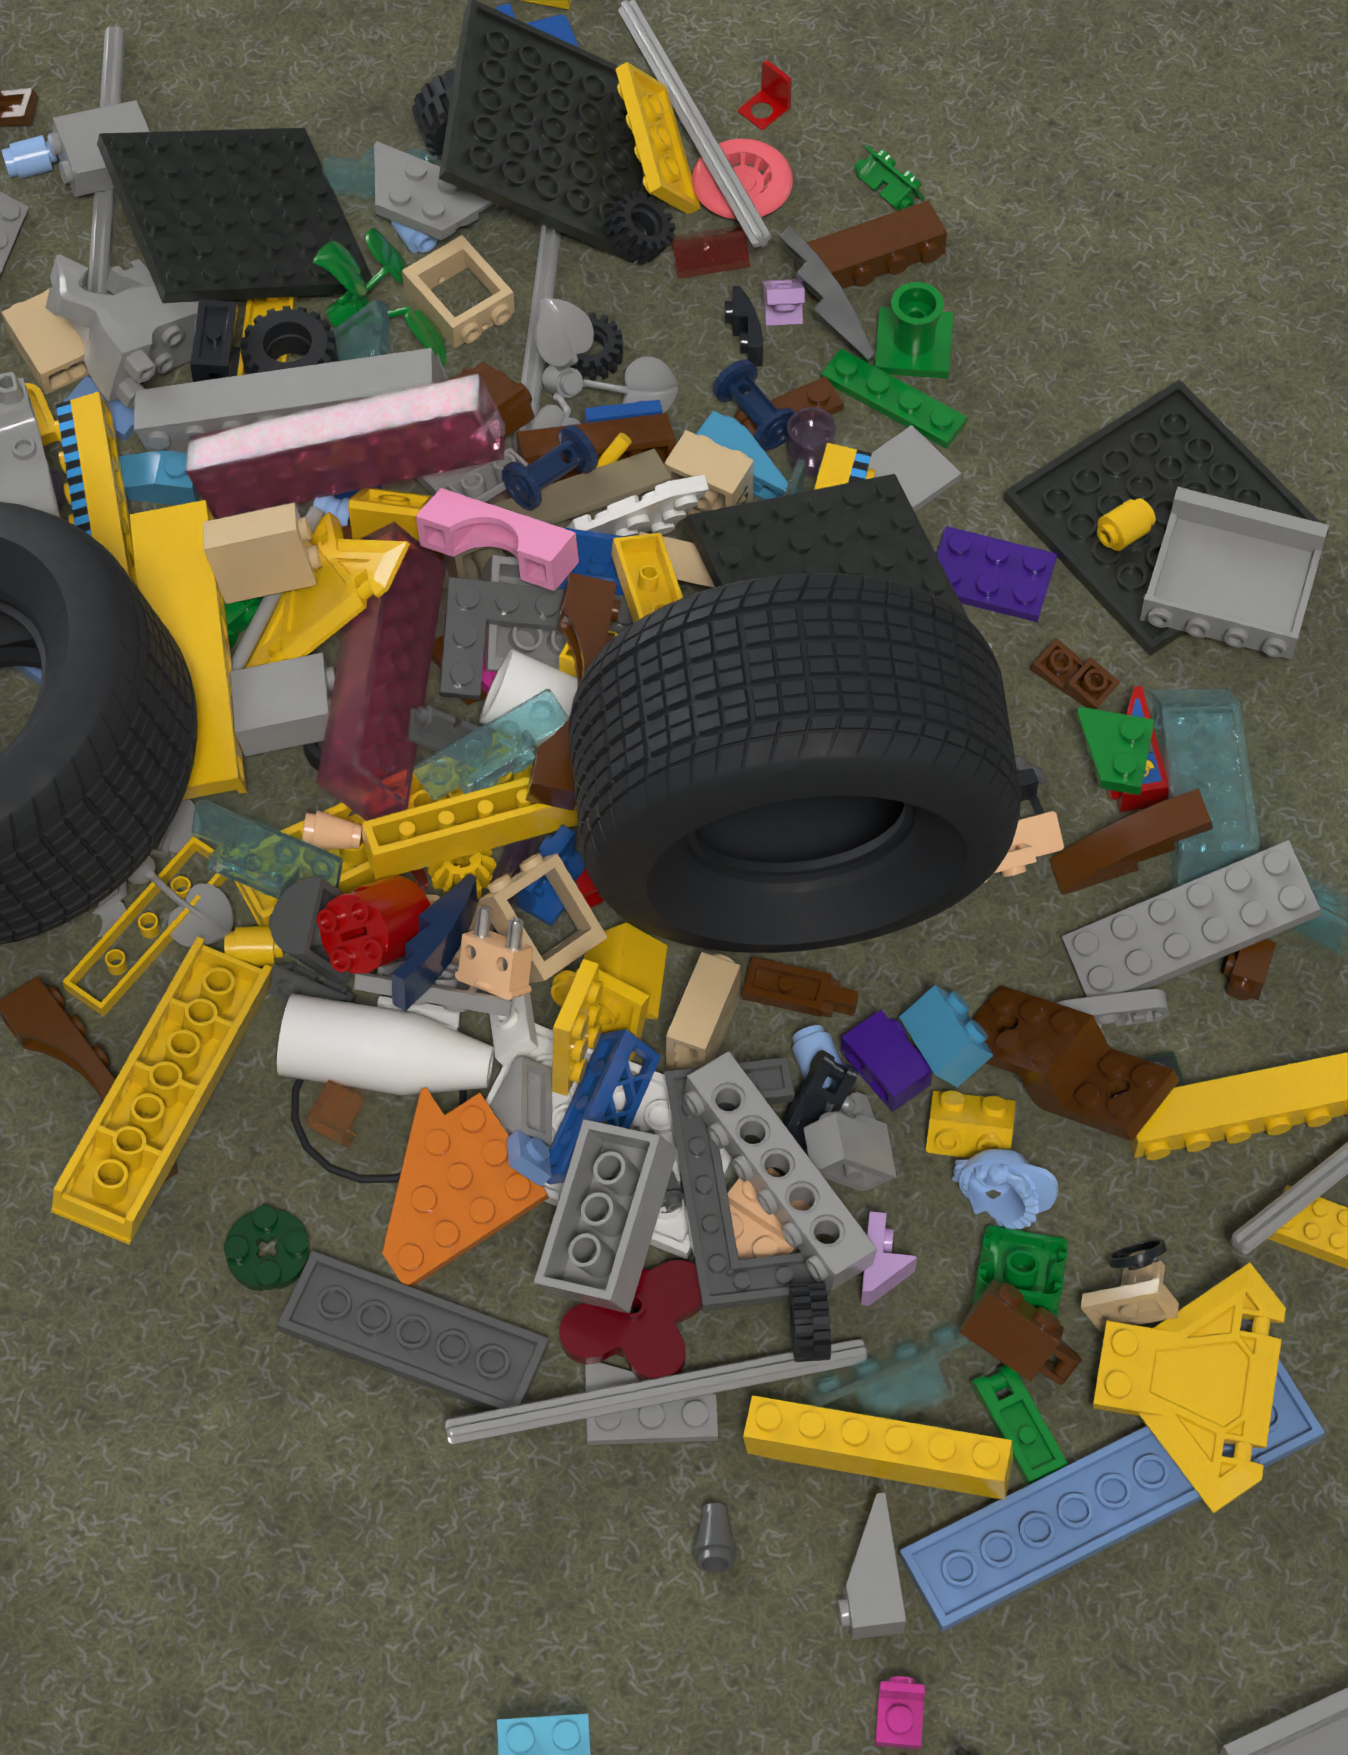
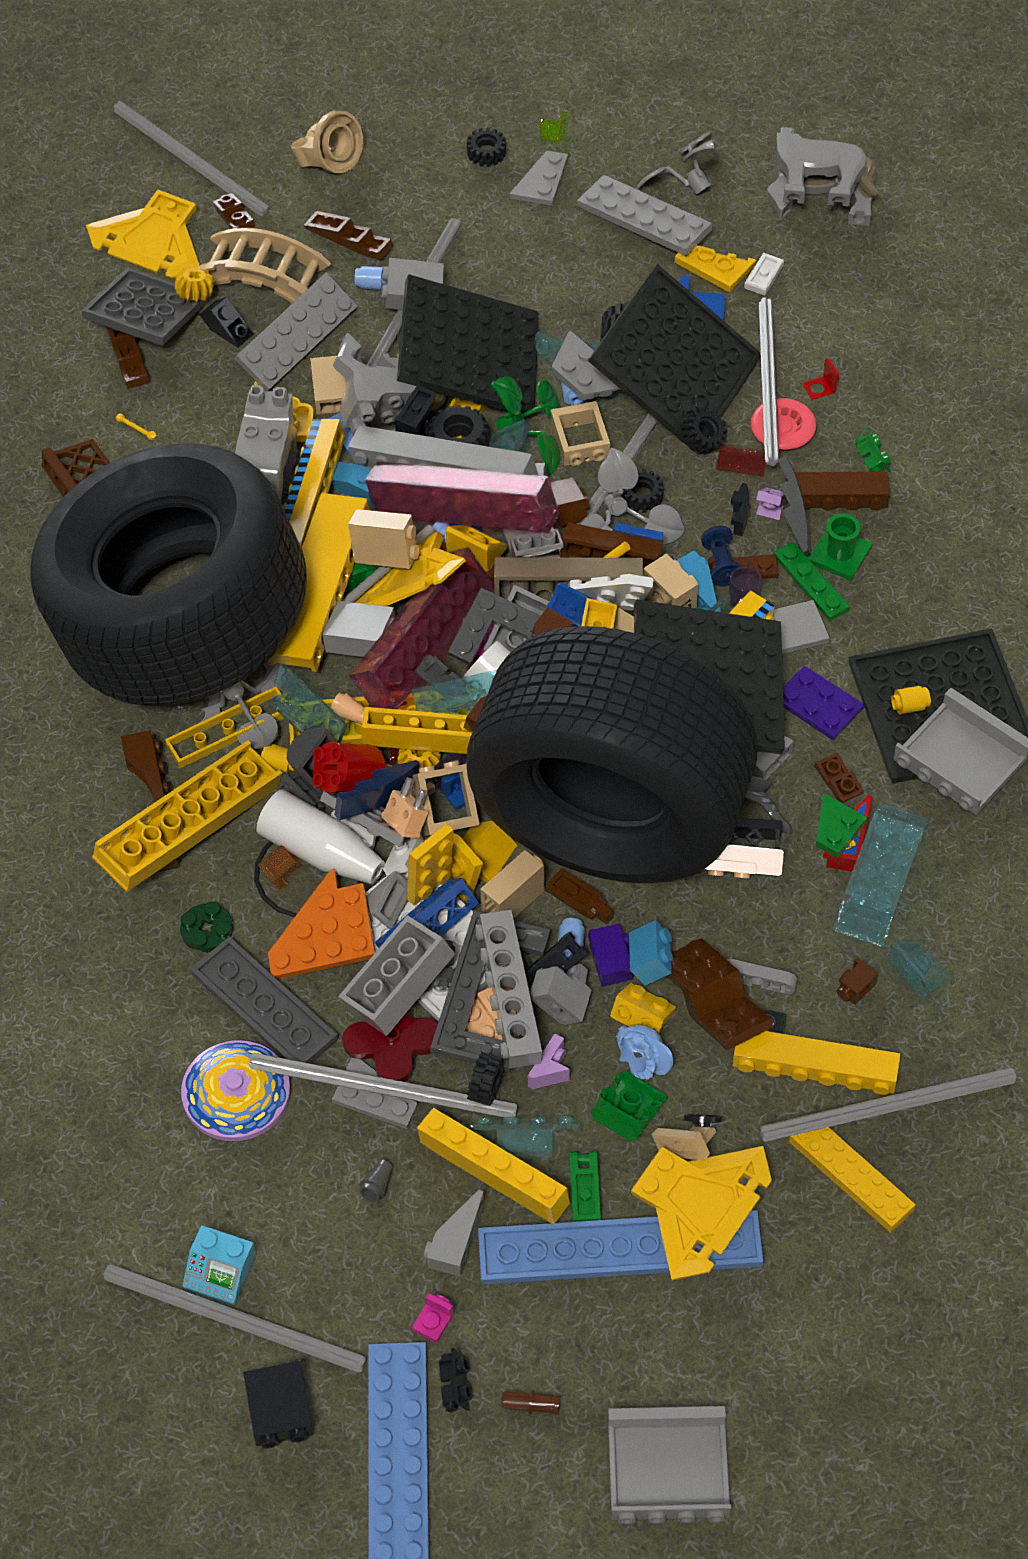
camera: 25 degrees right, 5 degrees down
(433, 1500) = (229, 1097): none -> dish
(460, 523) = (503, 559): bright pink arch -> none
(527, 482) = (572, 546): dark blue hose -> none
(529, 1157) = (372, 928): medium blue plate -> none
(657, 138) = (739, 382): yellow plate -> none
(1019, 1333) = (607, 1135): reddish brown brick -> none
(1133, 839) = (817, 882): reddish brown slope -> none
(1193, 924) = (832, 943): light grey plate -> none

